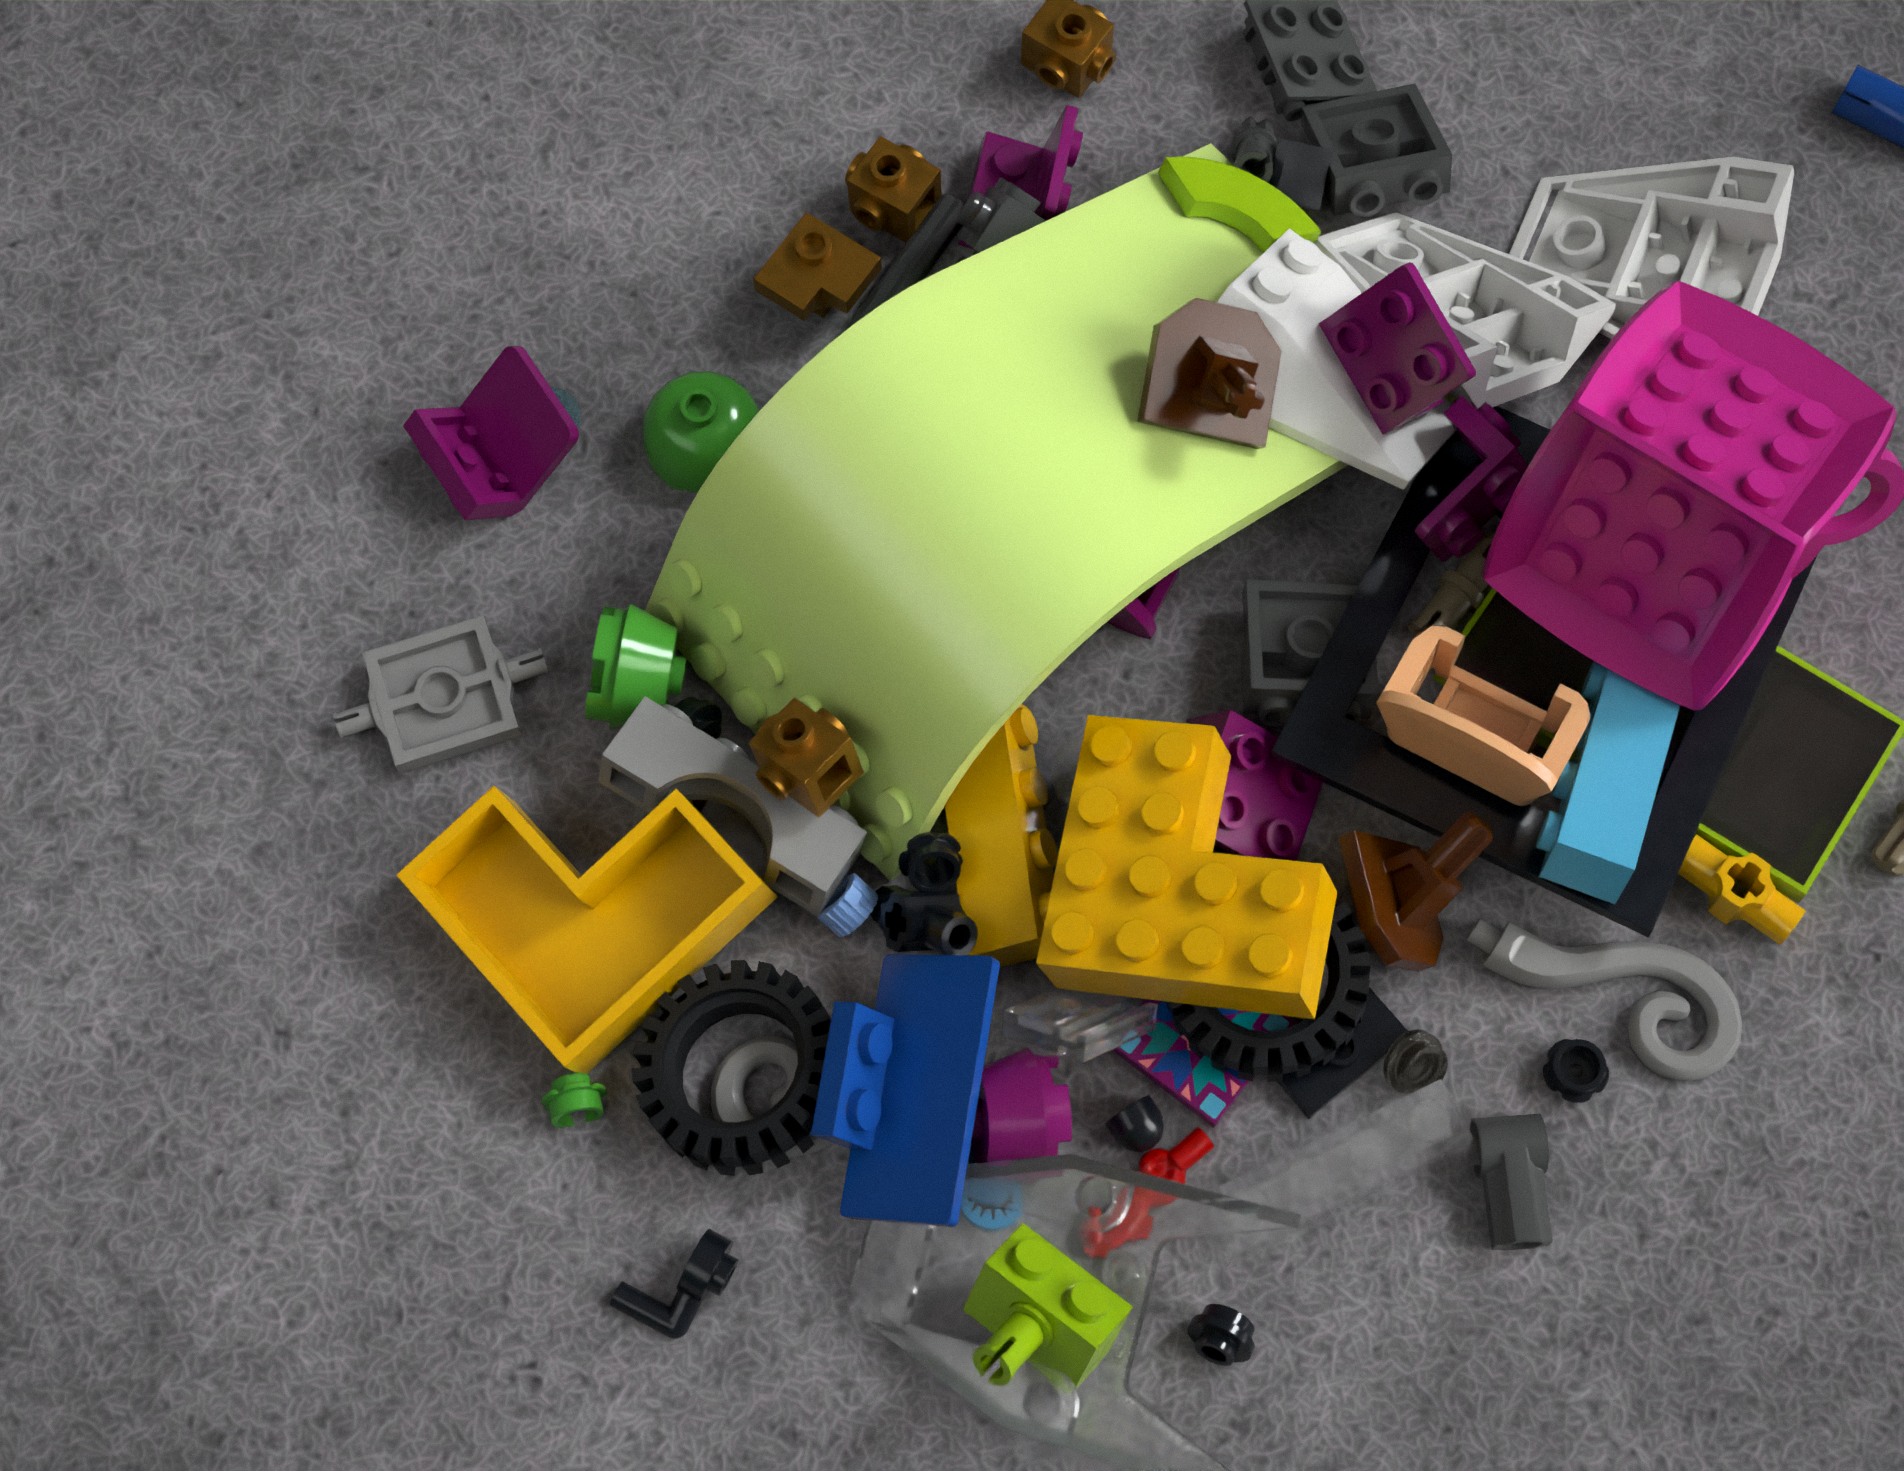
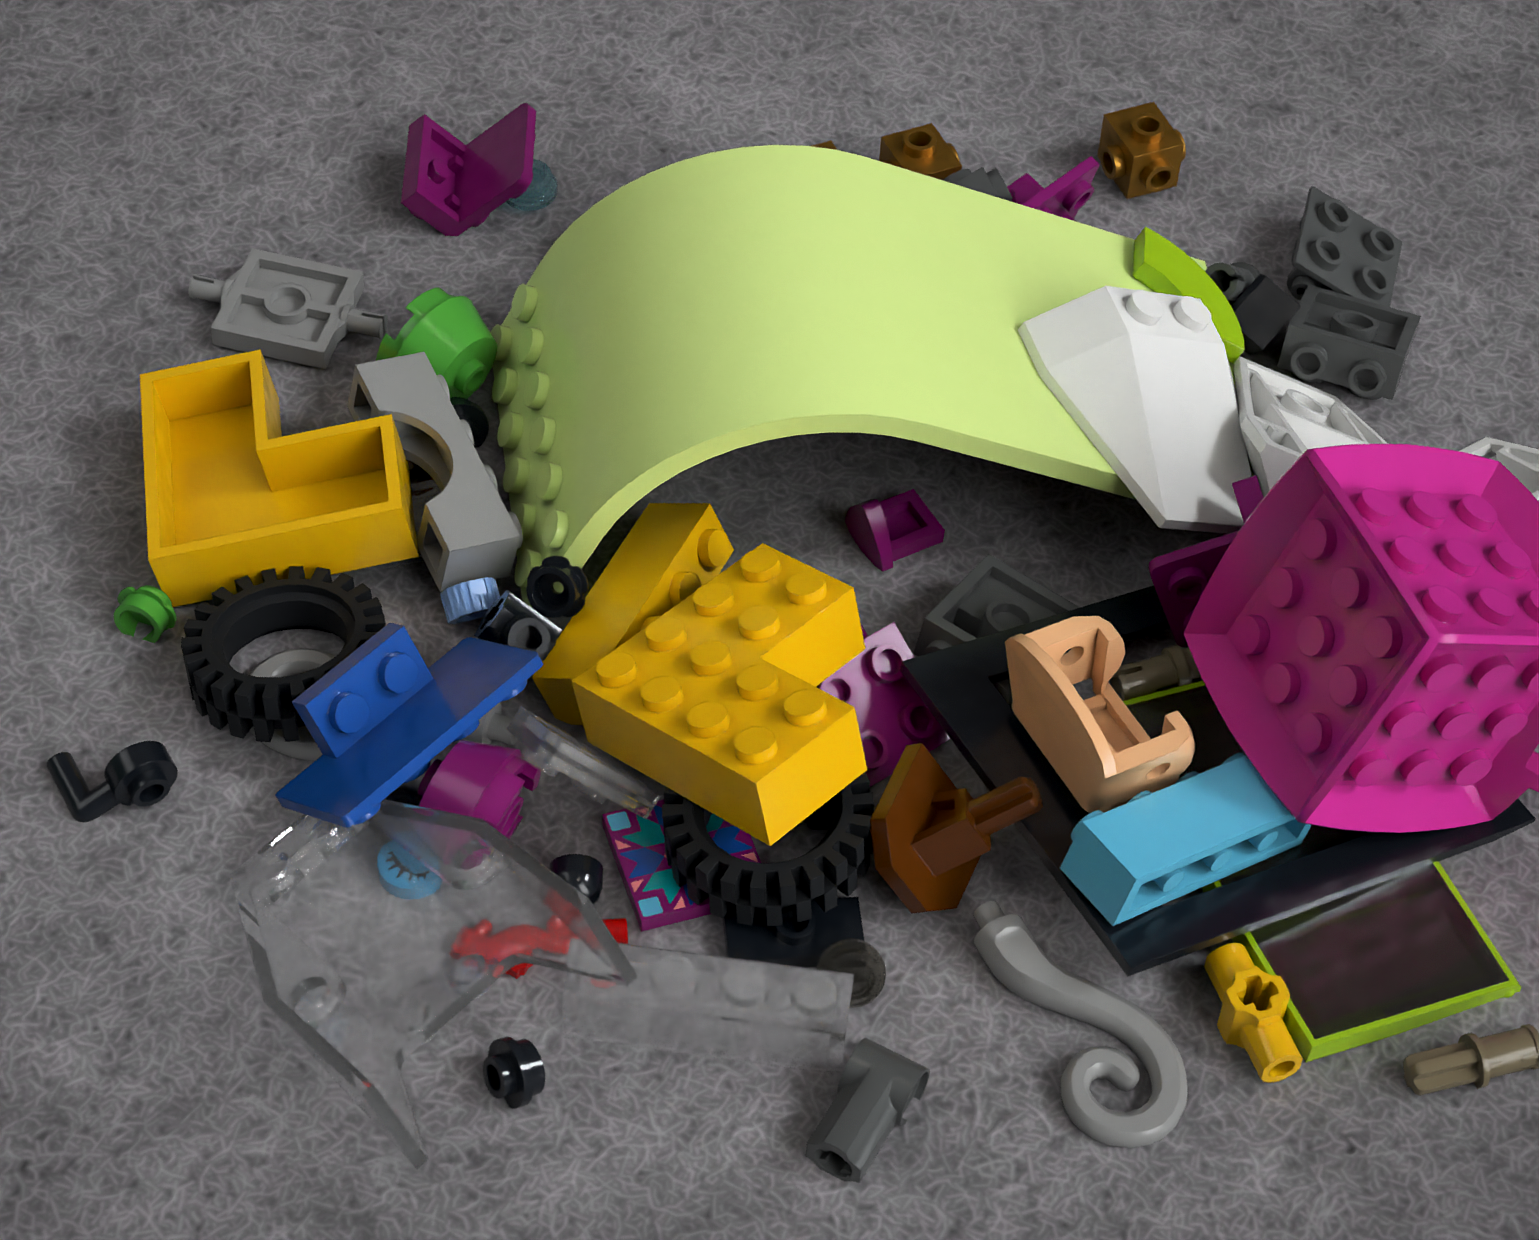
camera: 30 degrees right, 20 degrees down
(805, 756) = (507, 440): pearl gold brick -> none
(1042, 1311) = (371, 935): lime brick -> none
(1211, 374) = (1039, 332): piece -> none
(1398, 348) = (1214, 404): magenta bracket -> none
(1583, 1054) = (996, 1049): black plate -> none

